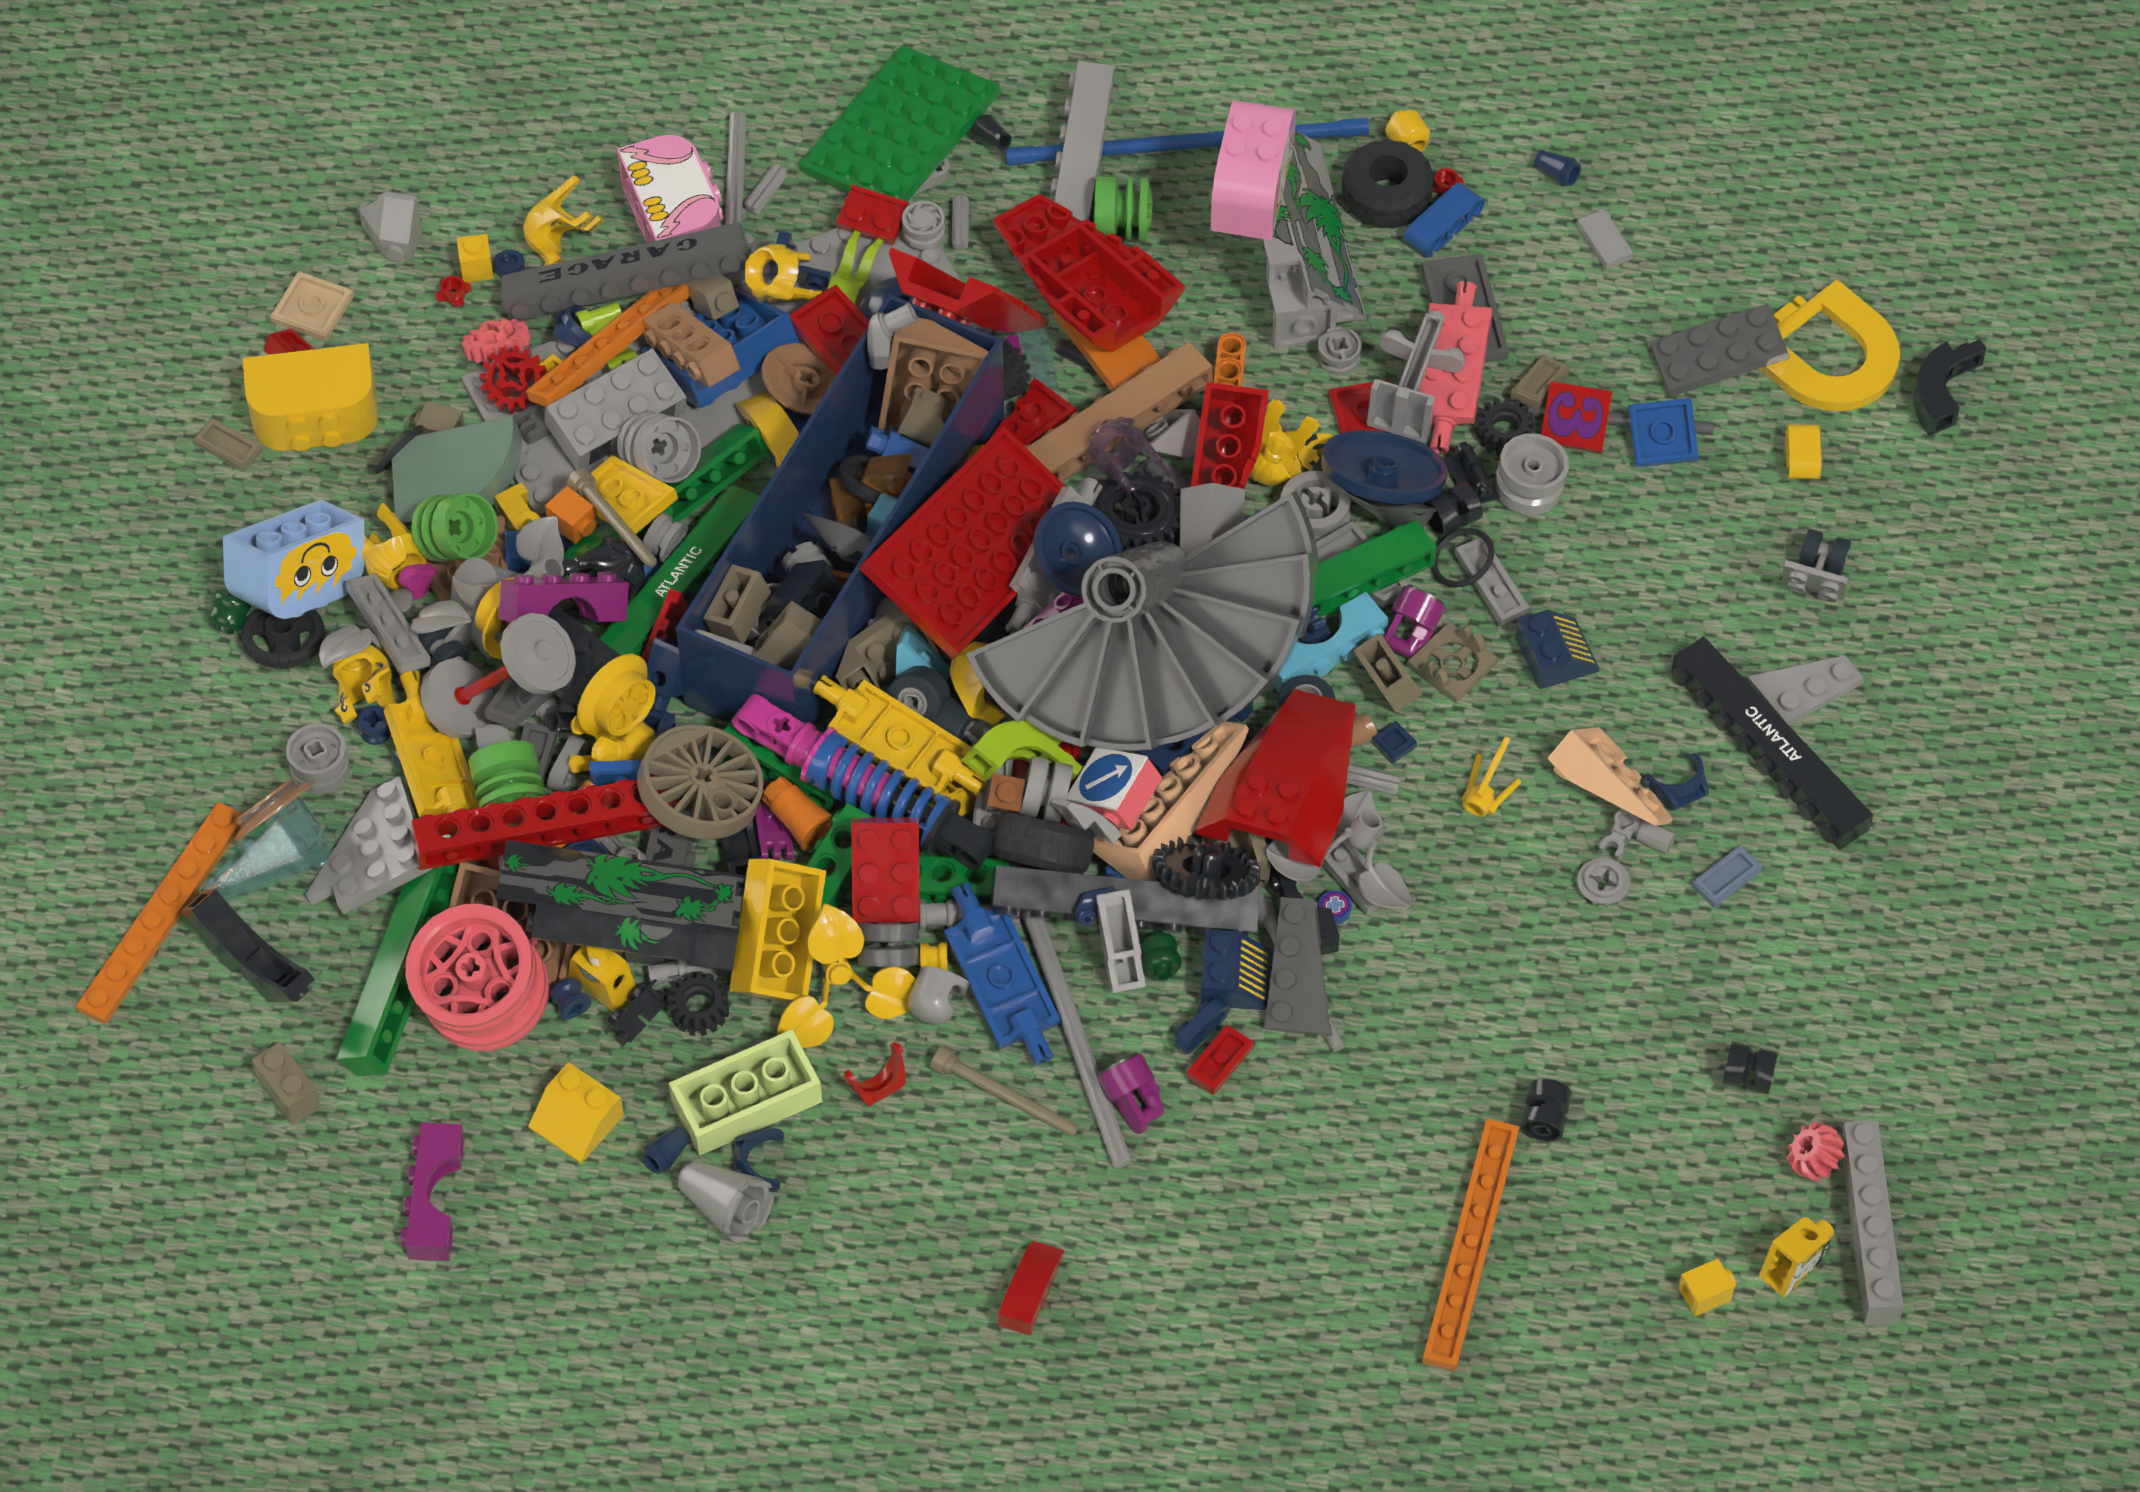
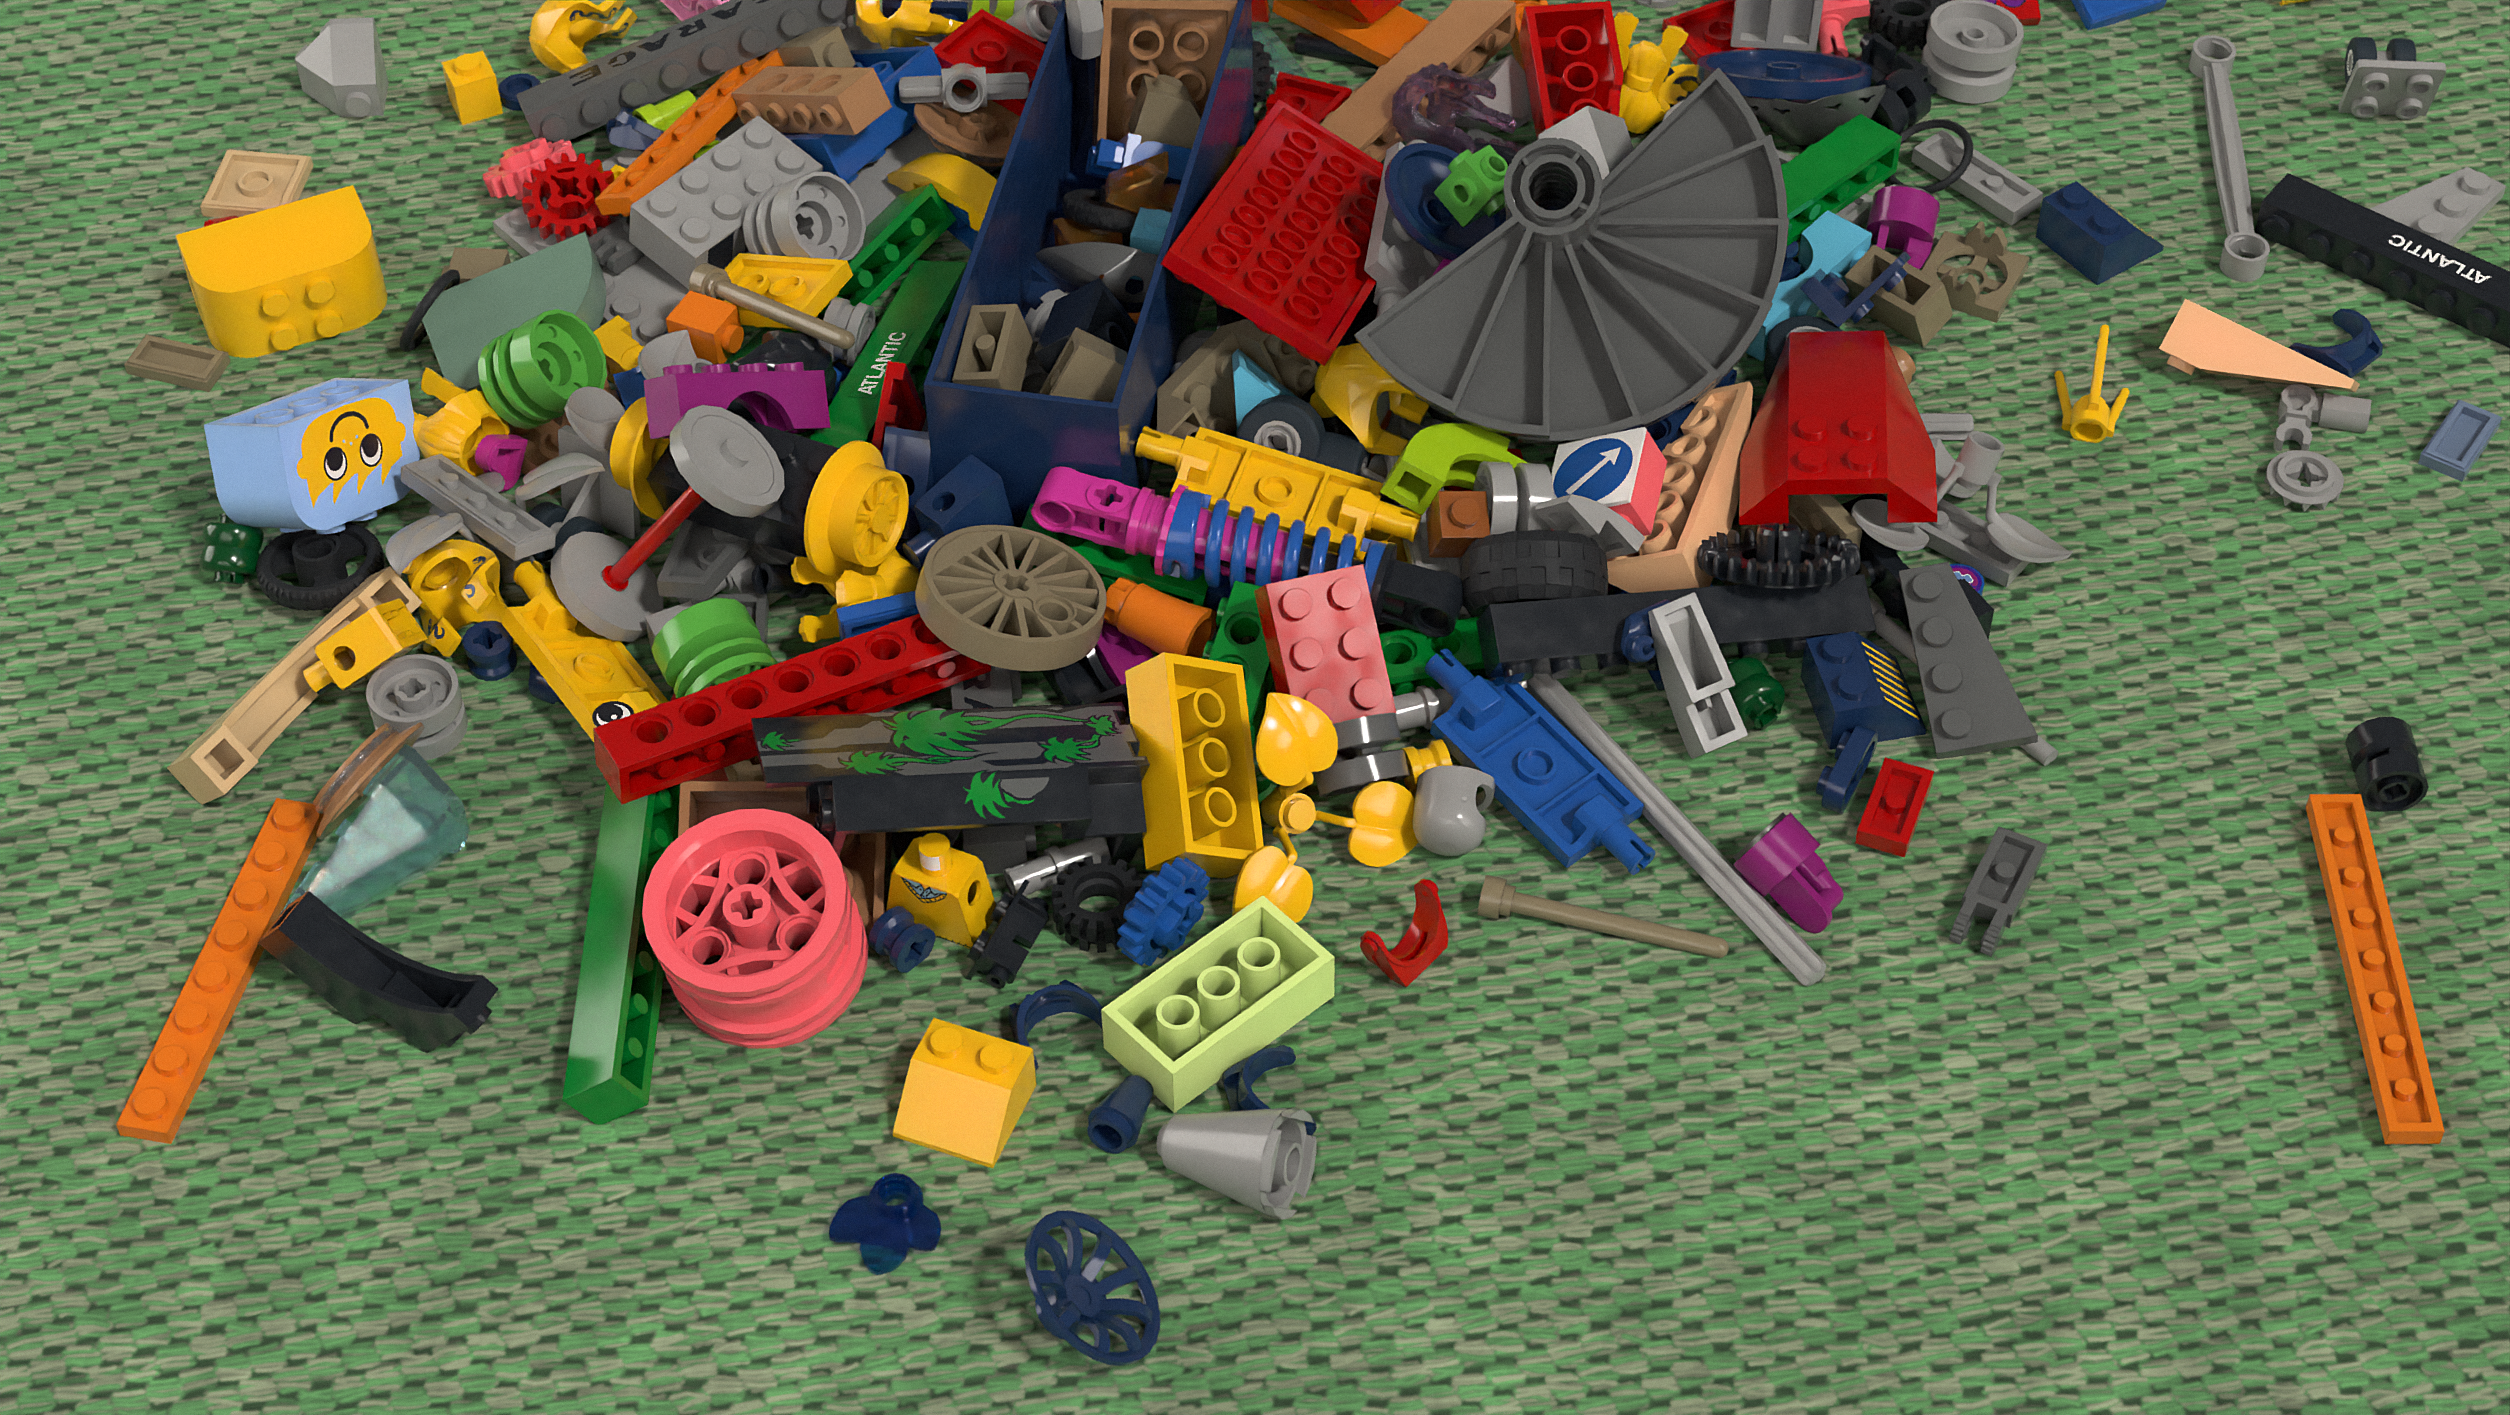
camera: 15 degrees left, 10 degrees down
(207, 750) = (276, 699): none -> tan arch
(286, 1083) = (489, 1155): dark tan brick -> none
(294, 711) = (375, 639): none -> yellow torso
(373, 852) = (536, 811): light grey wing -> none
(433, 802) = (610, 711): none -> black sticker
(438, 1154) = (784, 1311): magenta arch -> none
(449, 284) = (451, 131): red plate -> none
(507, 1190) = (884, 1229): none -> clear blue plate
(560, 774) = (789, 641): light grey beam -> none
(600, 1264) = (1078, 1300): none -> dark blue wheel
(637, 1065) = (1048, 1002): none -> dark blue helmet
(689, 704) = (961, 499): none -> dark blue torso
(730, 1023) = (1163, 911): none -> blue gear
(800, 343) = (988, 87): none -> light grey axle
(868, 301) = (1035, 19): none -> light grey cone
(1030, 1287) = (1760, 1179): red slope -> none
(1097, 543) = (1474, 185): none -> bright green brick
(1261, 1132) = (1999, 886): none -> dark grey hinge
(1336, 671) = (1830, 292): none -> dark blue bracket
(1394, 742) = (1940, 380): dark blue tile -> none
(1679, 605) = (2228, 160): none -> light grey piece

